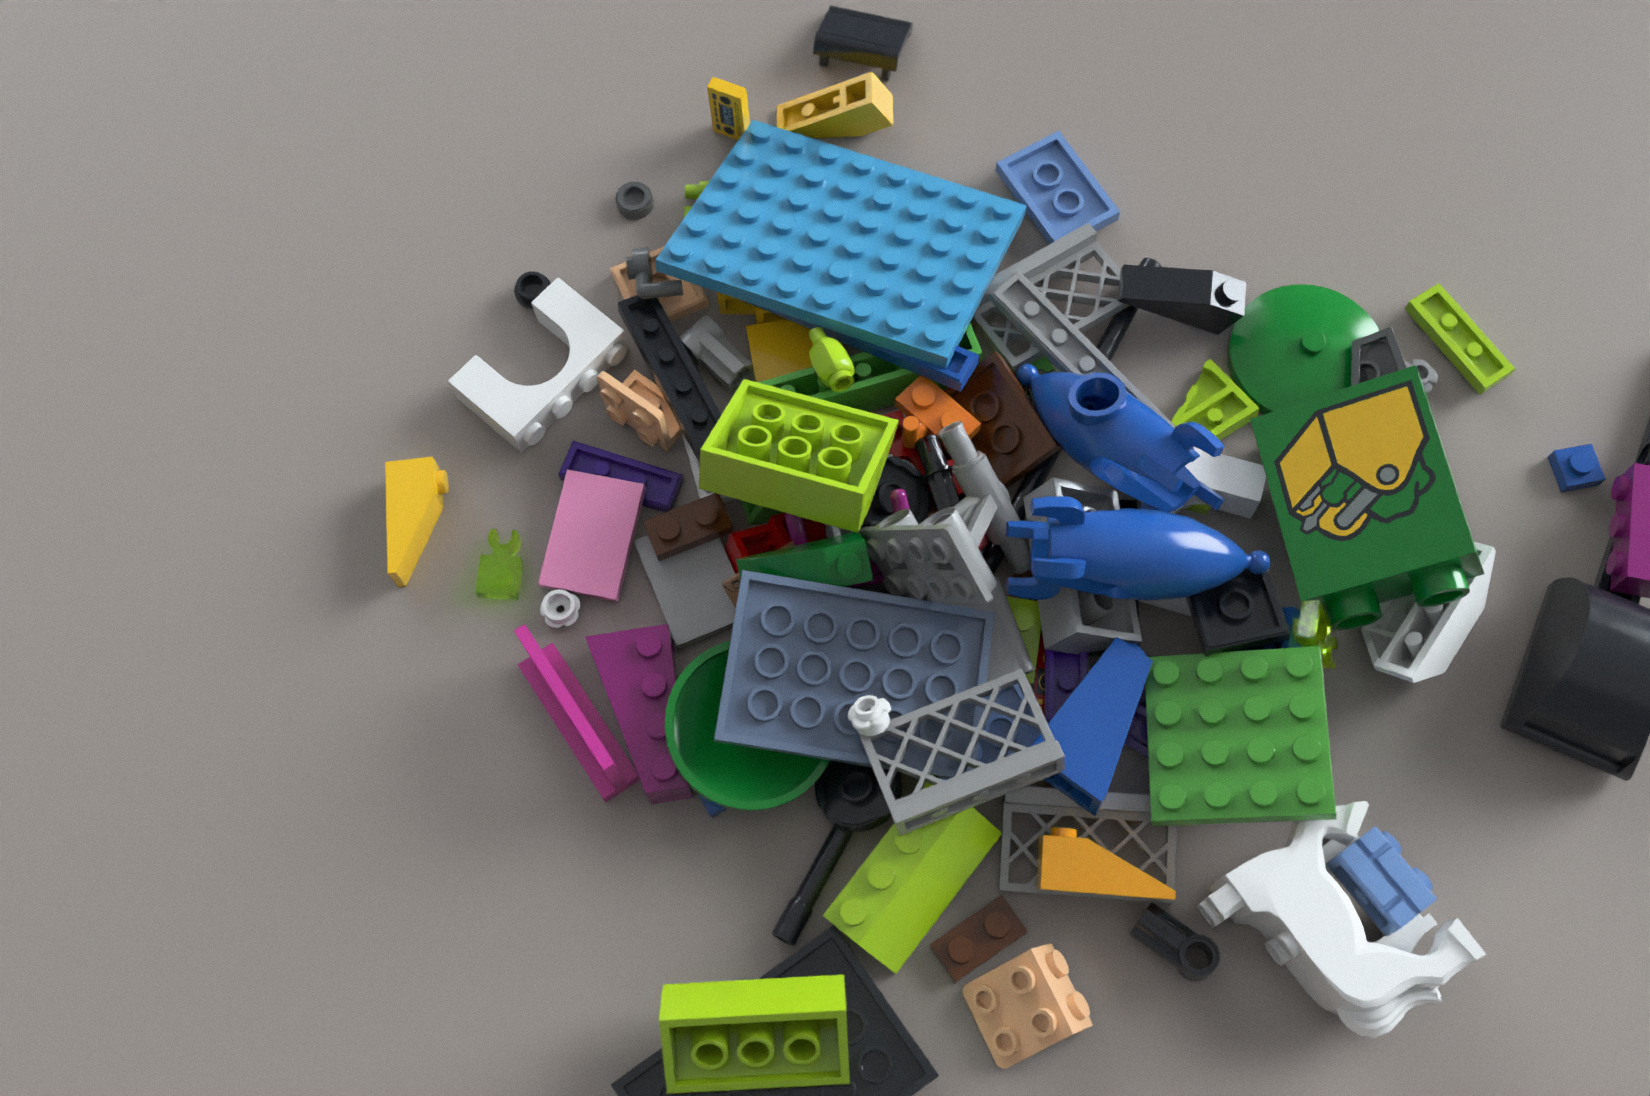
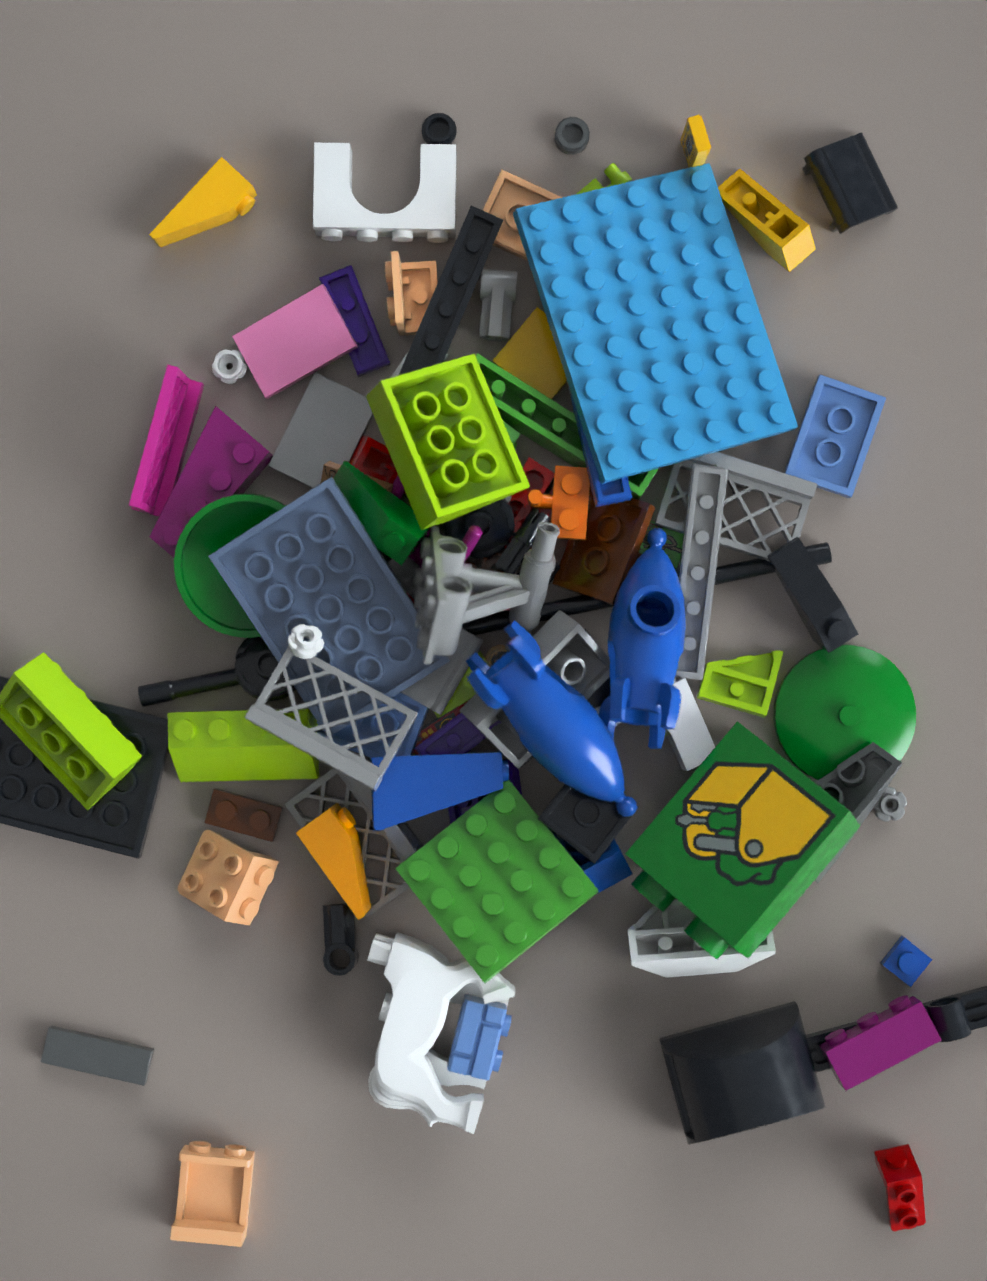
camera: 45 degrees right, 20 degrees up
(501, 572) = (220, 302): clear neon green plate -> none
(640, 268) = (512, 197): dark grey plate -> none
(688, 526) = (346, 399): reddish brown plate -> none
(830, 361) = (541, 399): lime plant -> none
(1314, 630) = (612, 877): clear neon green plate -> none
(1459, 338) = (945, 812): lime plate -> none

